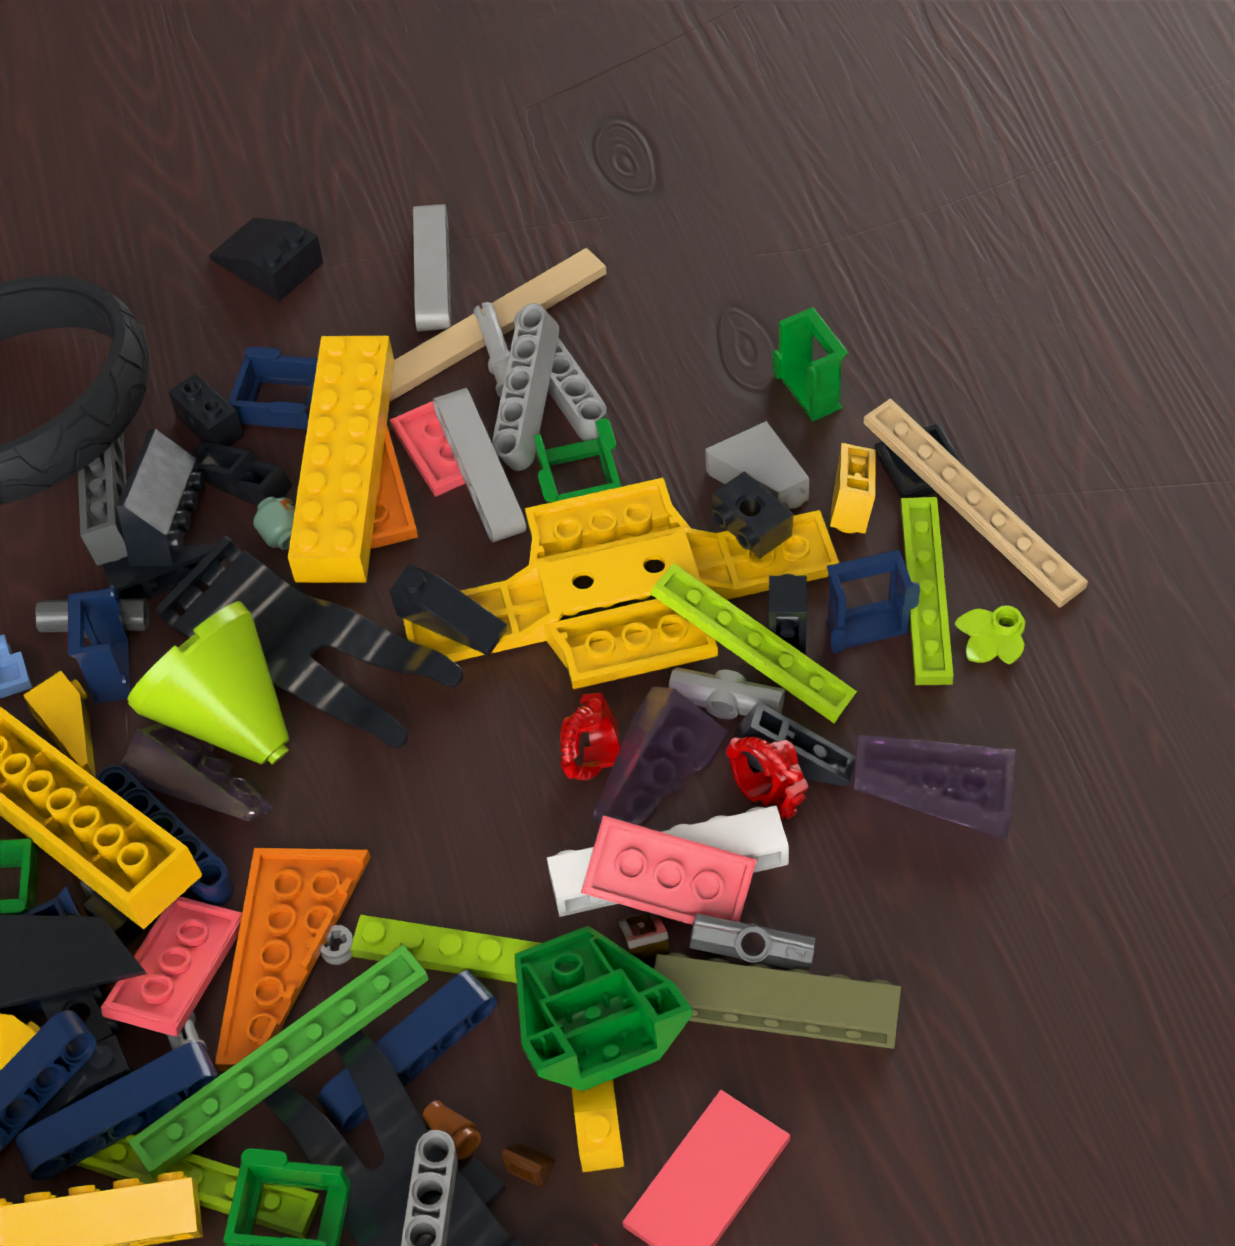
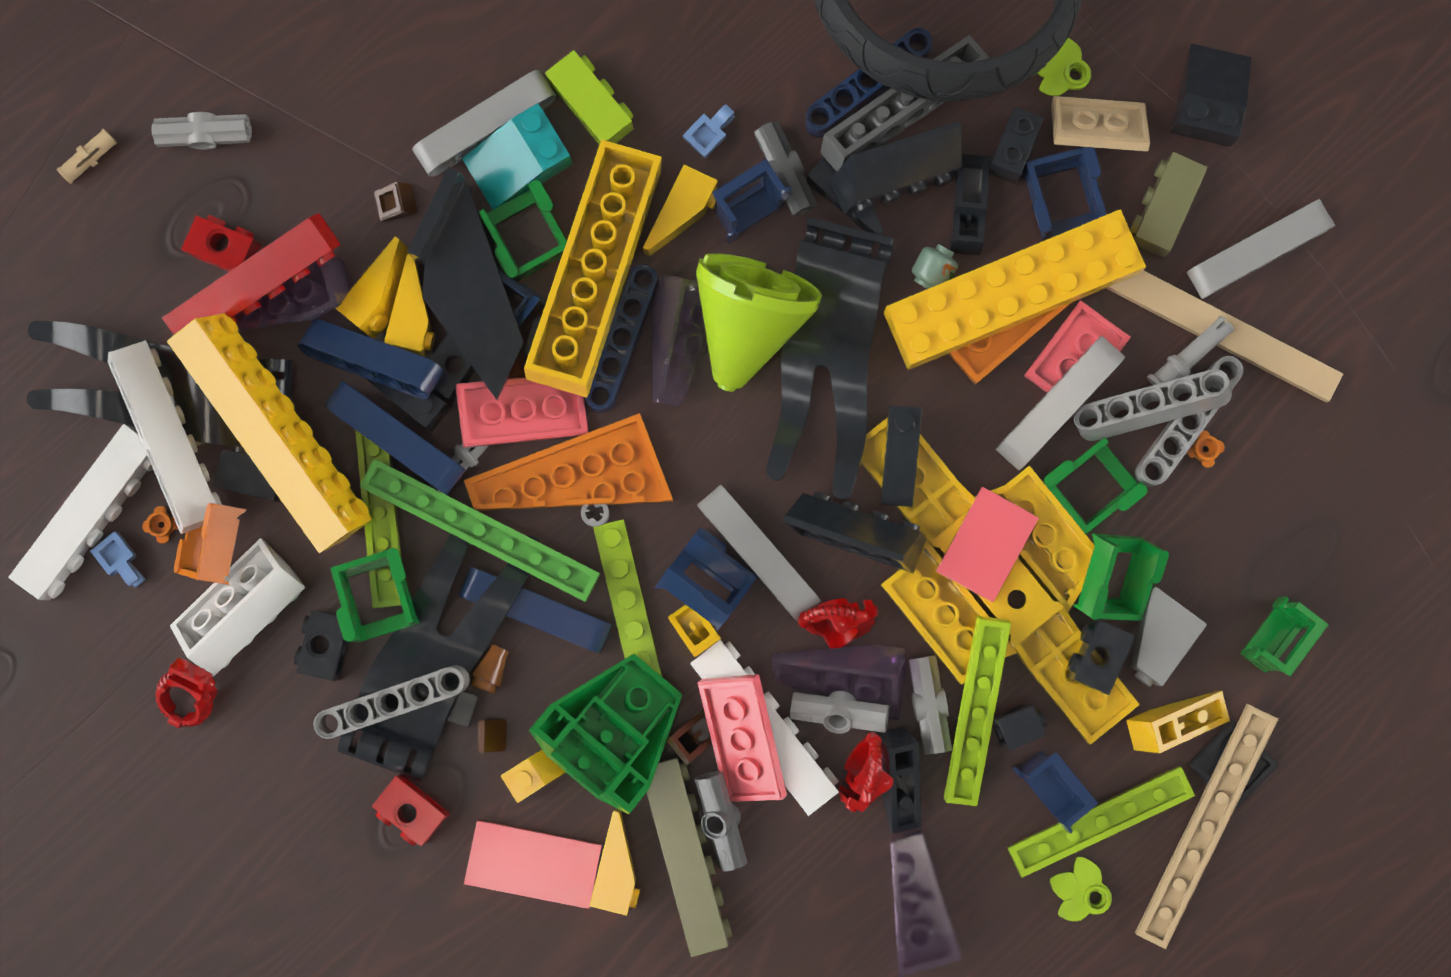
camera: 65 degrees right, 30 degrees up
(62, 534) = (854, 90): none -> dark blue beam
(167, 355) = (1058, 69): none -> lime plate
(232, 339) = (1100, 123): none -> tan tile
(338, 310) = (1167, 204): none -> olive brick
(472, 843) = (710, 556): none -> dark blue piece
(473, 793) = (758, 552): none -> light grey beam
(505, 679) = (856, 531): none -> black slope
(523, 888) = (694, 630): none -> yellow slope
(583, 566) = (987, 544): none -> coral tile
(597, 372) = (1214, 446): none -> orange plate
(677, 794) = (839, 712): none -> light grey piece
(679, 468) = (1144, 569): none -> green piece
(758, 1081) = (616, 876): none -> yellow slope

